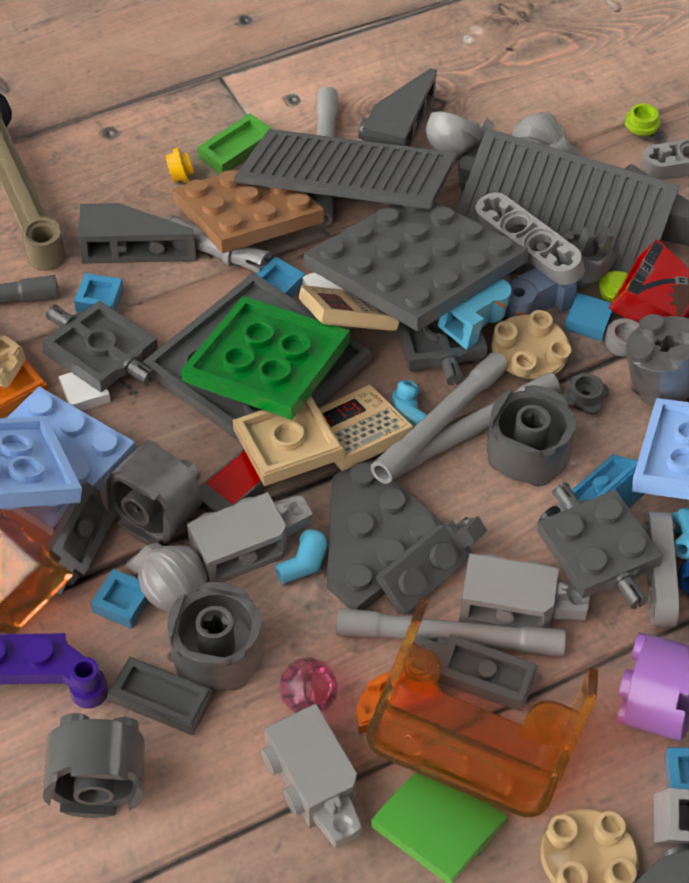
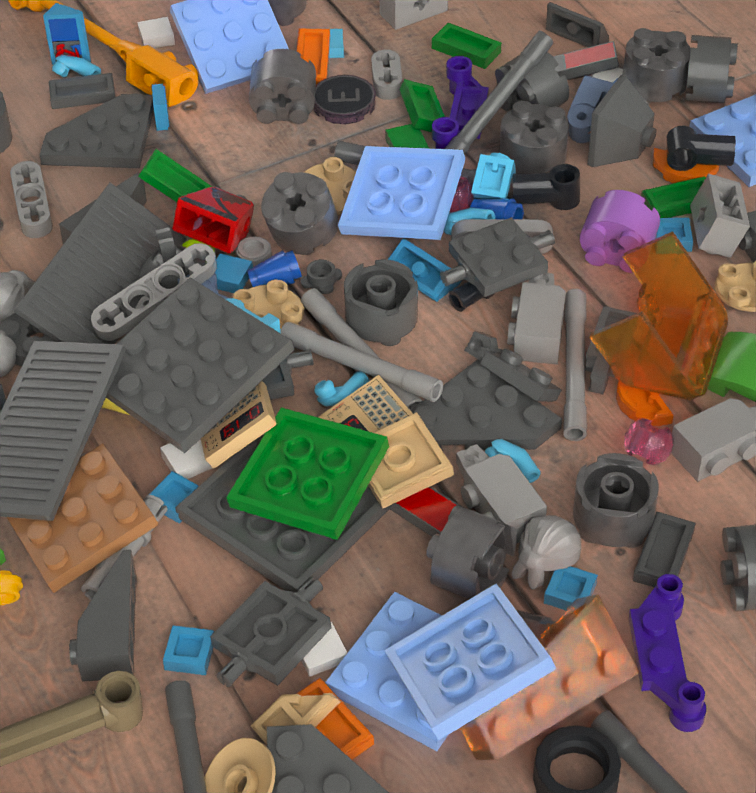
camera: 90 degrees left, 5 degrees down
(589, 351) = (279, 266): none -> blue cone

